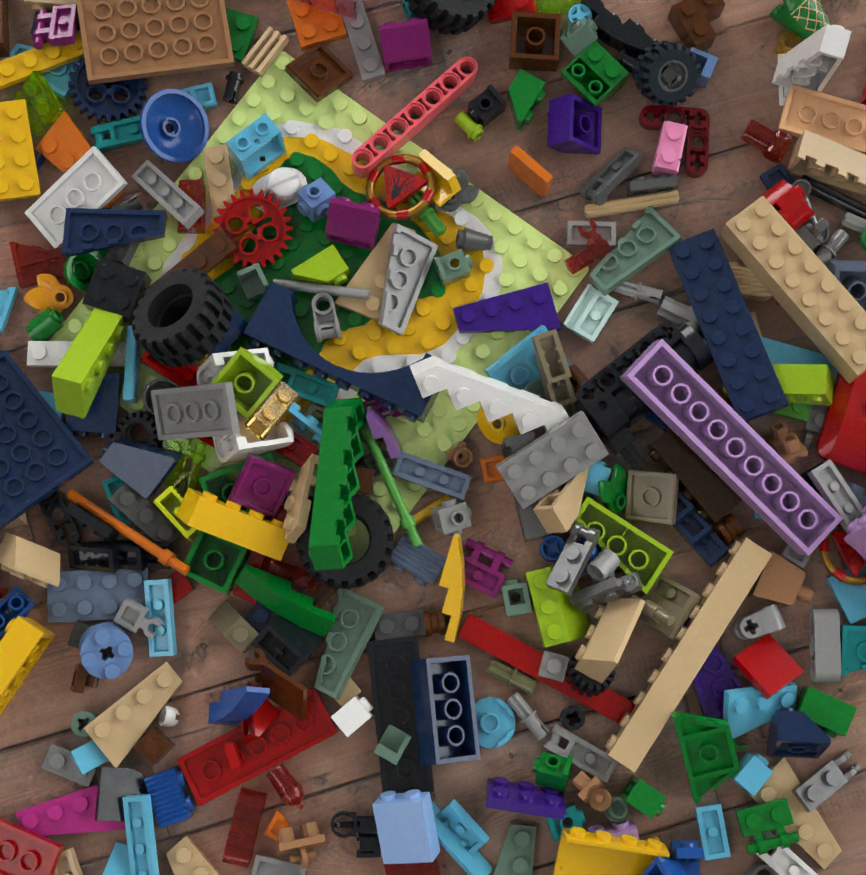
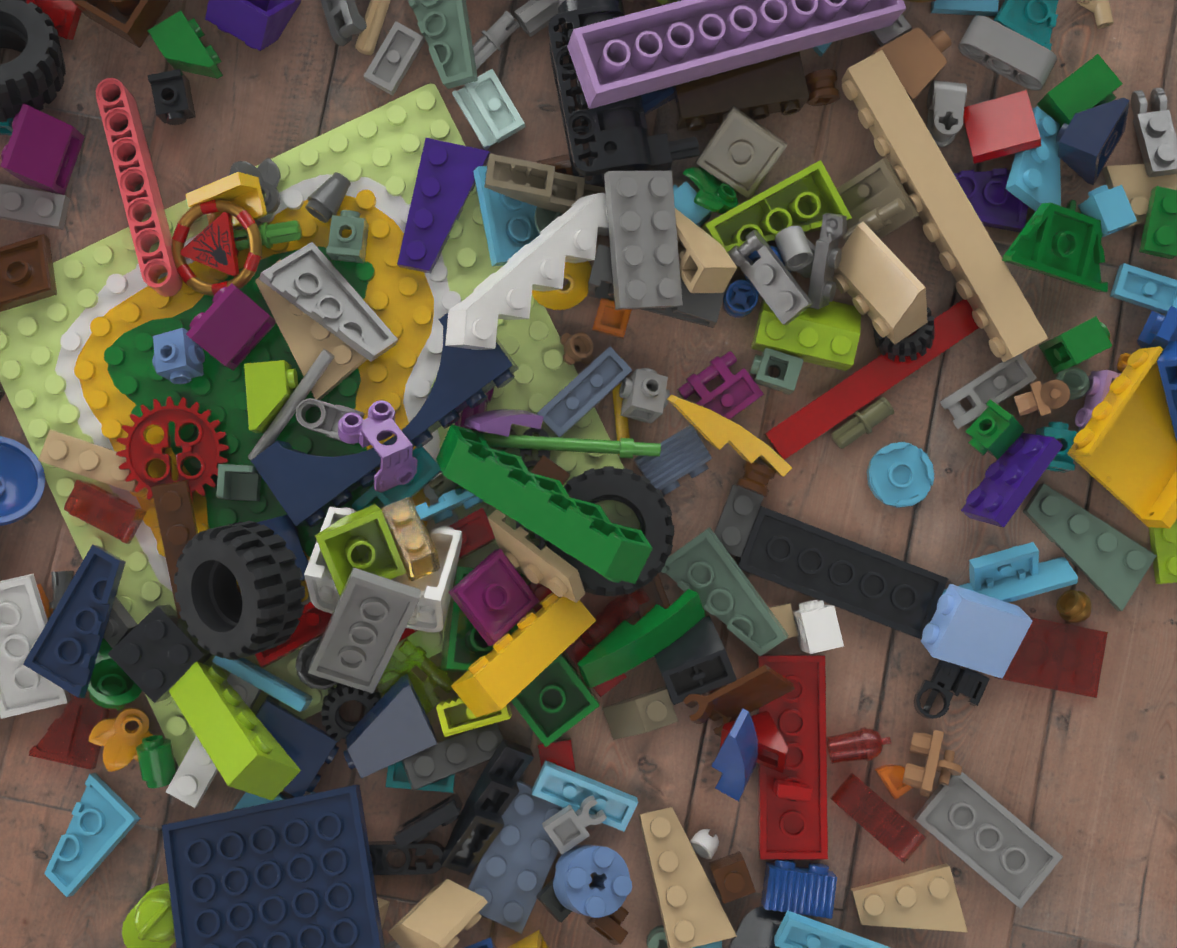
camera: 60 degrees left, 5 degrees up
(165, 556) = (518, 754): orange bar -> none
(168, 194) = (73, 531): light grey plate -> none
(247, 151) = (65, 391): medium azure window -> none
(260, 616) = (645, 677): dark blue plate -> none
(283, 184) = (137, 386): white piece -> none
(319, 374) = (396, 459): none -> medium lavender piece
(392, 744) = (873, 598): sand green panel -> none
(445, 710) = (865, 517): dark blue brick -> none
(469, 126) = (185, 130): lime pin -> none
(528, 716) = (916, 427): light grey axle -> none
(530, 171) = (280, 86): orange tile -> none
(553, 666) = (875, 368): light grey plate -> none
(579, 714) = (953, 382): black bush -> none
(598, 249) = (414, 56): clear red bar -> none
(698, 532) = (809, 124): dark blue slope -> none

